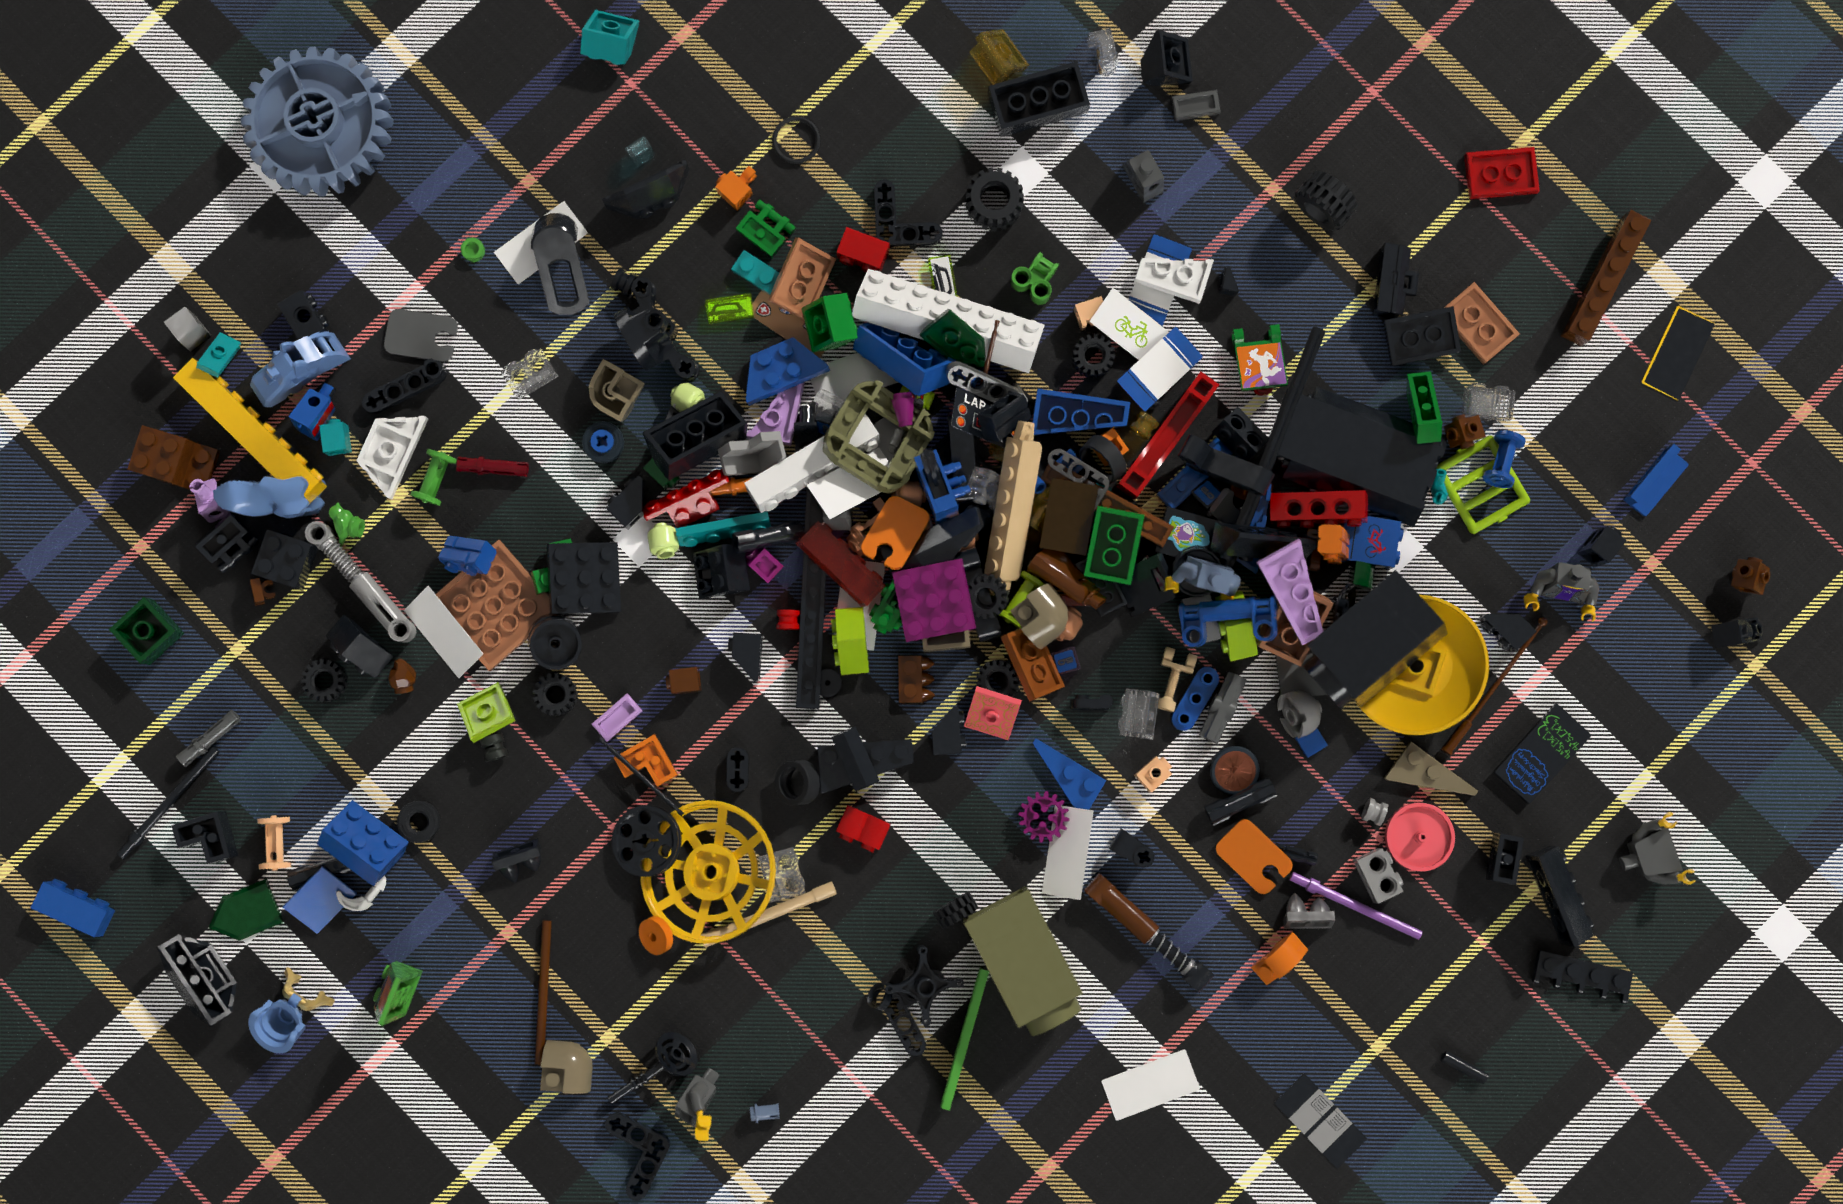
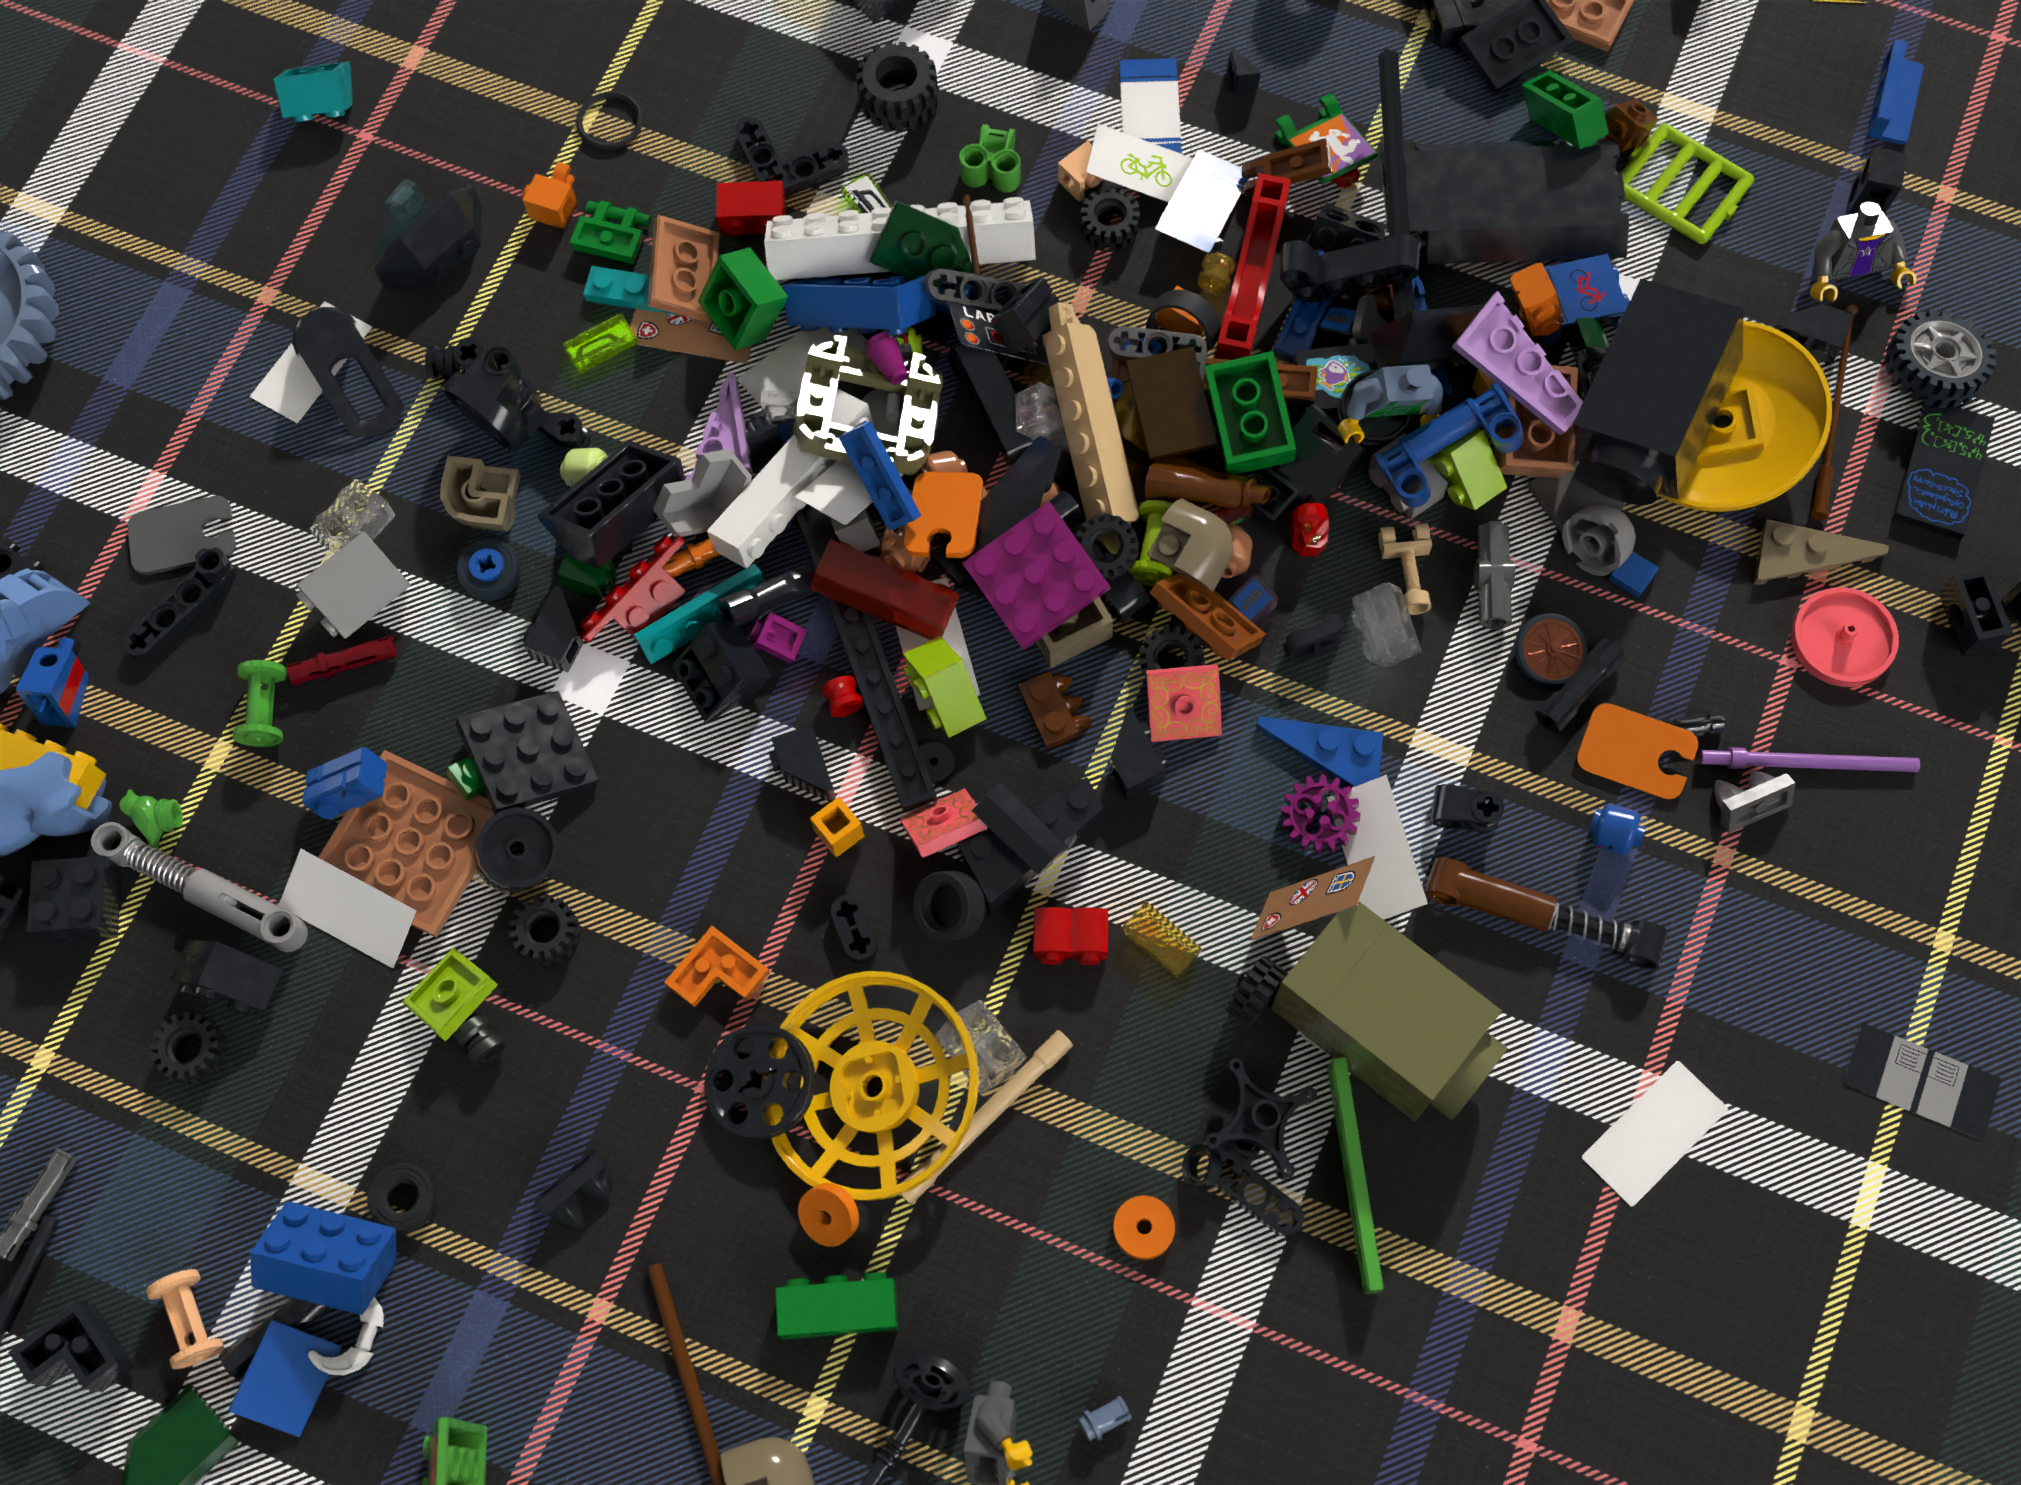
camera: 20 degrees left, 15 degrees down
(259, 591) = (49, 960): reddish brown tile -> none
(335, 437) = (99, 708): teal brick -> none
(390, 450) = (185, 694): white wing -> none
(402, 677) = (305, 994): reddish brown rock -> none
(472, 249) = (218, 402): bright green tile -> none
(514, 423) = (352, 586): none -> light grey brick
(617, 717) = (648, 928): lavender tile -> none
(640, 989) = (836, 1306): none -> green brick
(643, 778) = (716, 991): black piece -> none
(663, 541) = (623, 661): yellowish green head -> none
(684, 680) = (726, 835): reddish brown brick -> none
(751, 705) = (837, 827): none -> light orange brick
(781, 369) = (702, 386): blue wing -> none
(814, 728) = (942, 823): none -> coral plate
(836, 1005) = (1144, 1245): none -> orange piece
(863, 495) = (879, 475): none -> blue panel
(887, 614) = (979, 634): green brick -> none
(915, 853) = (1161, 939): none -> clear yellow plate
(937, 485) = (973, 428): blue piece -> none
(1010, 874) = (1313, 898): none -> medium nougat sticker
(1073, 412) = (1123, 286): blue wedge -> none
(1121, 631) = (1309, 529): none -> red rock
(1145, 776) = (1442, 707): light nougat brick -> none
(1179, 278) = (1178, 92): white wing -> none
(1187, 706) = (1449, 593): blue plate -> none
(1216, 900) = (1616, 829): none -> blue head
(1226, 371) = (1295, 163): none -> reddish brown hinge
(1280, 959) = (1747, 873): orange brick -> none
(1283, 502) = (1502, 260): red brick -> none
(1373, 878) = (1813, 713): light grey brick -> none
(1374, 811) = (1768, 625): light grey wheel -> none
(1438, 488) = (1631, 204): teal arm -> none
(1488, 403) = (1648, 80): clear brick -> none
(1508, 443) = (1702, 153): blue hose -> none
(1590, 670) = (1940, 358): none -> black wheel

